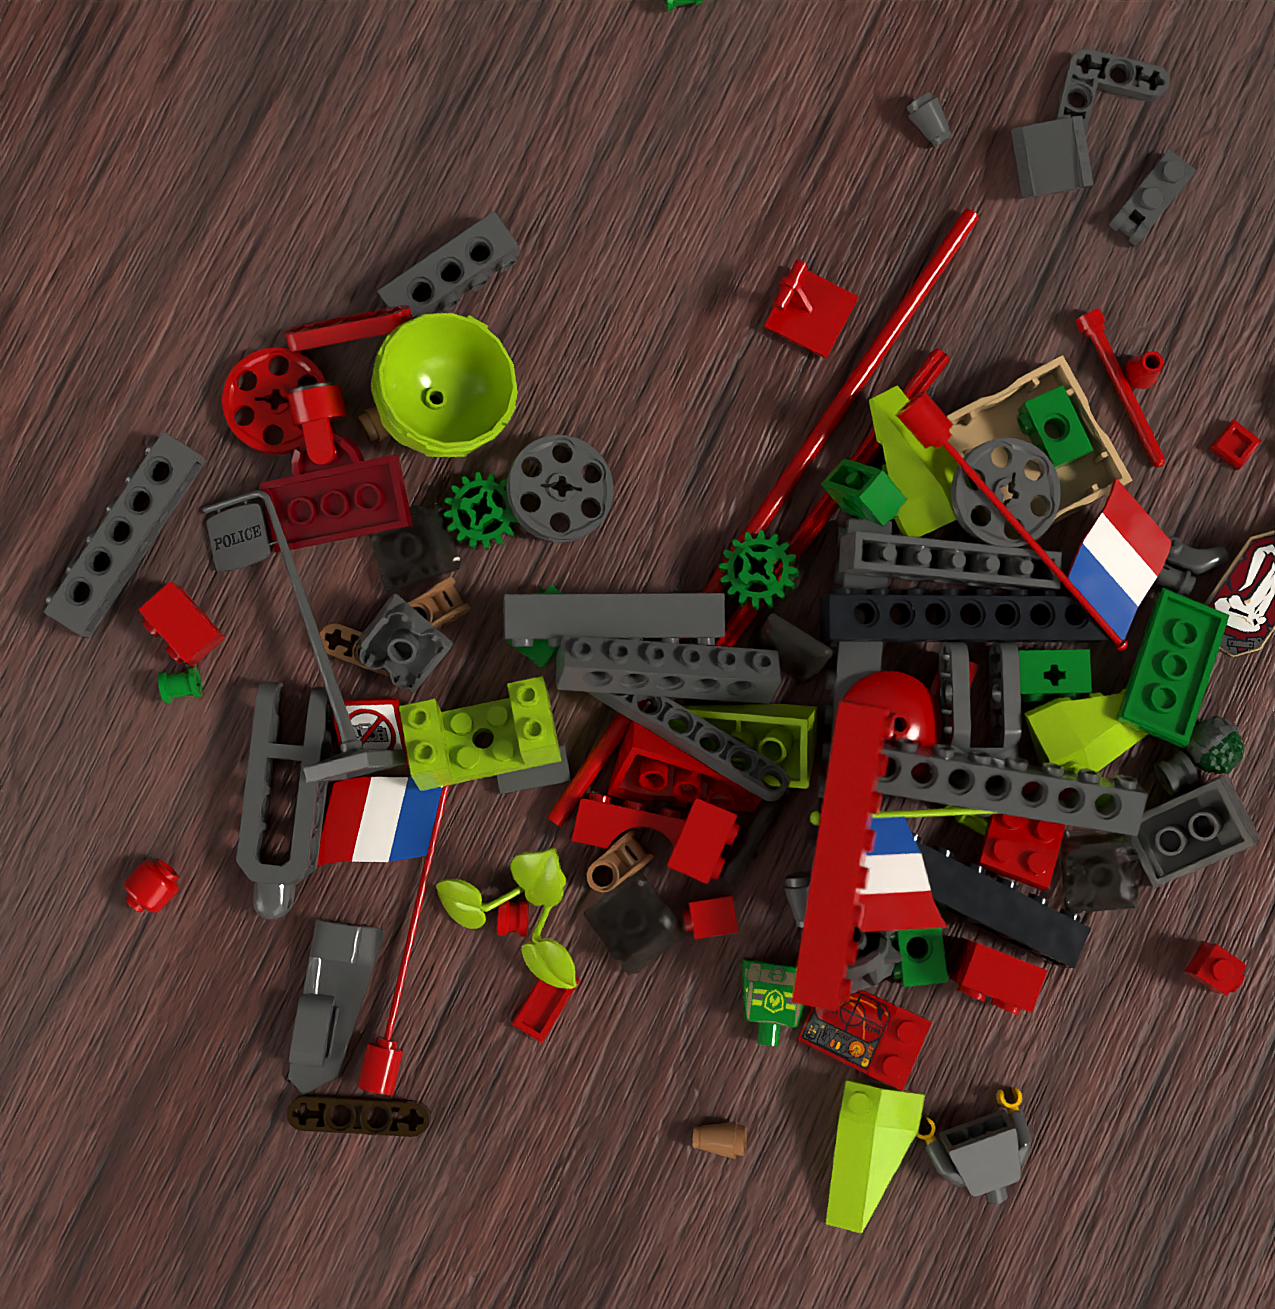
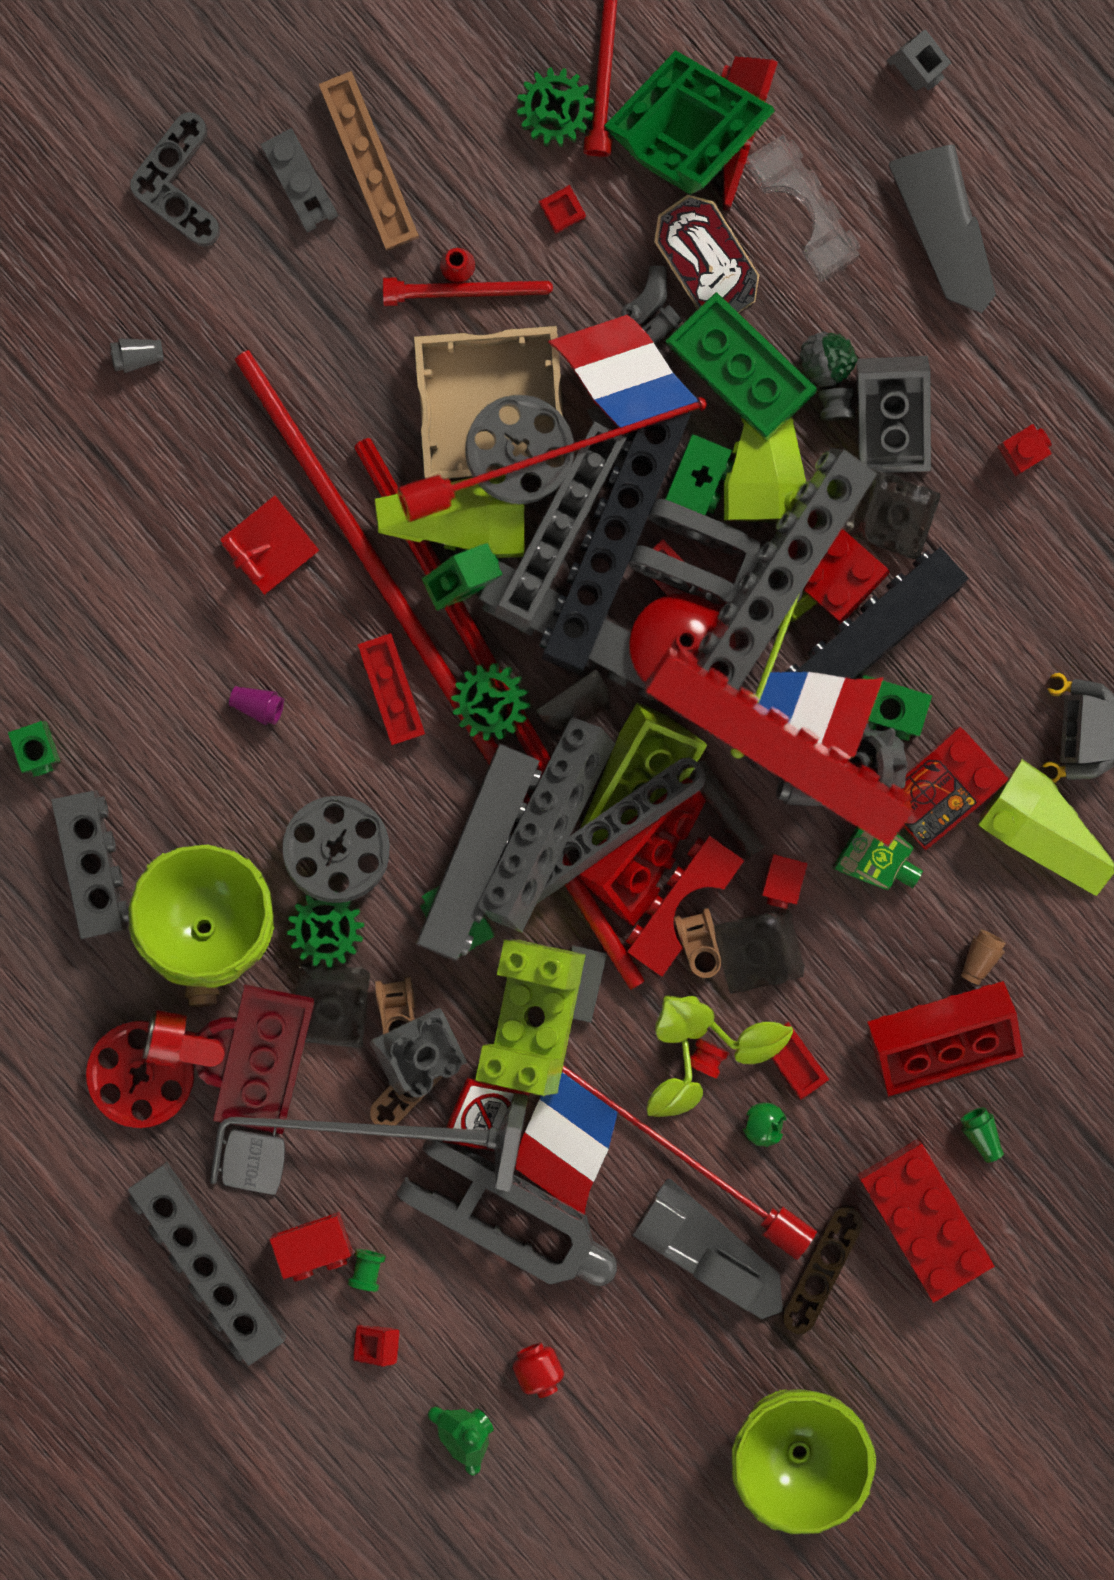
camera: 65 degrees left, 5 degrees up
(61, 842) = (463, 1435): none -> green rock
(114, 725) = (376, 1345): none -> red slope
(140, 1197) = (807, 1490): none -> lime rock
(347, 328) = (104, 980): red beam -> none
(446, 1196) = (925, 1220): none -> red brick
(473, 999) = (764, 1124): none -> green piece
(537, 165) = (23, 737): none -> green brick
(555, 1211) = (982, 1133): none -> green cone
(629, 1139) = (946, 1038): none -> red slope
(662, 362) = (258, 704): none -> magenta cone
(702, 841) = (714, 860): red brick -> none
(729, 477) = (391, 689): none -> red plate
(993, 973) = (946, 649): red brick -> none
(1052, 157) = (223, 258): dark grey slope -> none
(1056, 409) = (458, 364): green brick -> none
(1198, 251) = (368, 161): none -> medium nougat plate

